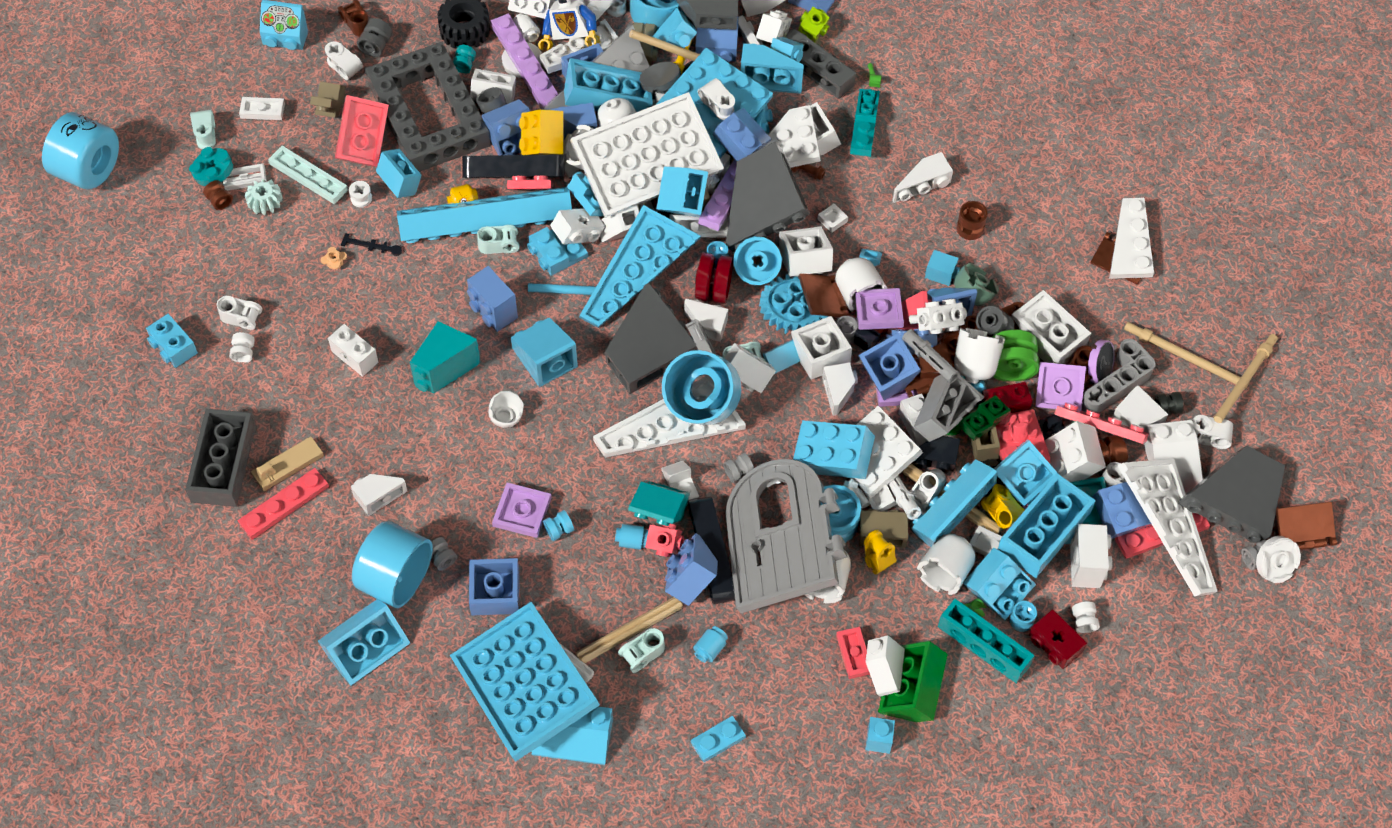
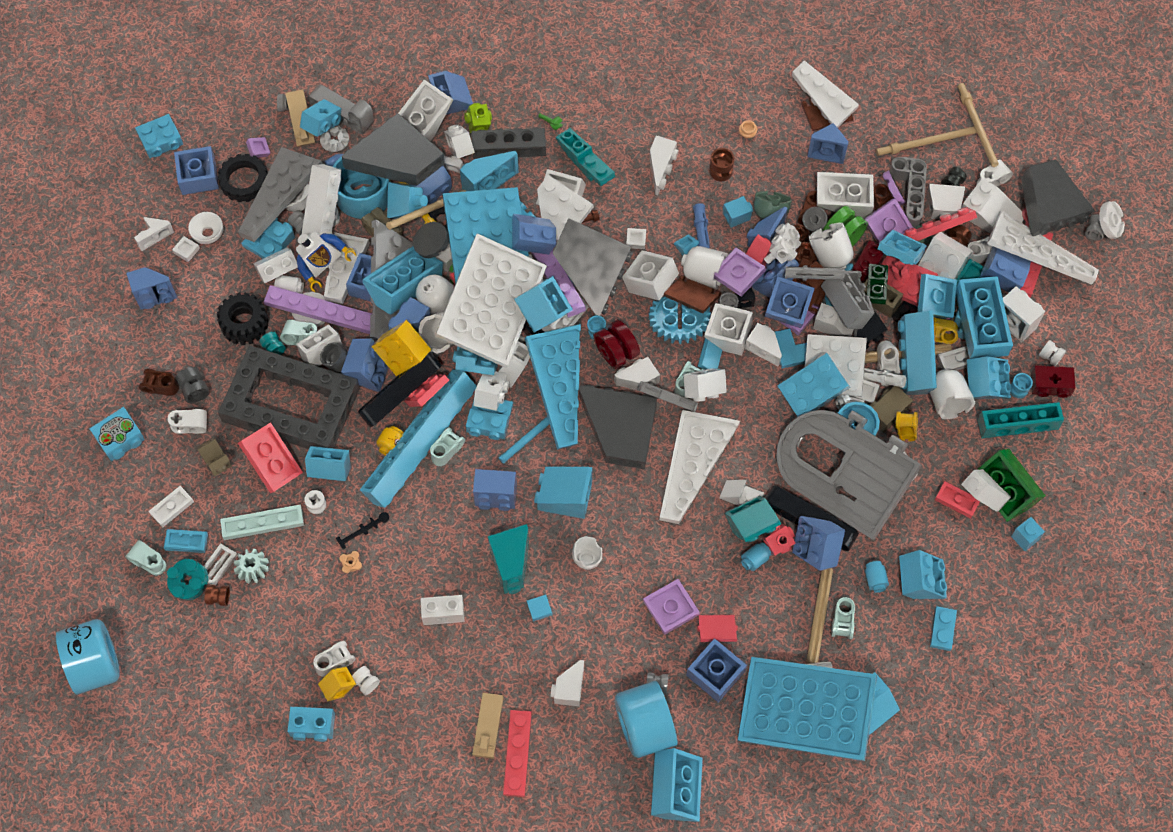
camera: 45 degrees left, 5 degrees up
(218, 329) = (337, 683): none -> yellow brick
(220, 457) = (445, 764): dark grey brick -> none
(243, 140) = (185, 541): none -> medium azure plate
(425, 417) = (539, 607): none -> medium azure tile
(490, 61) = (296, 331): none -> light aqua piece
(536, 559) = (718, 627): none -> coral piece
(558, 525) = (705, 594): medium azure wheel -> none
(678, 387) = (723, 425): medium azure piece -> none
(717, 98) = (491, 221): white piece -> none
(738, 467) = (766, 452): light grey wheel -> none
(749, 681) = (922, 576): none -> medium azure slope
(769, 265) = (631, 306): medium azure wheel -> none
(788, 48) = (487, 148): medium azure brick -> none
(855, 406) = (791, 354): none -> medium azure tile
(900, 252) = (701, 225): none -> medium blue pin
(975, 605) = (985, 408): bright green hand -> none
(1032, 214) = (748, 129): none -> light nougat plate
(1040, 407) = (902, 247): none -> medium azure plate
(1081, 278) = (828, 145): none -> medium blue slope
(1307, 524) = (1102, 185): copper piece -> none

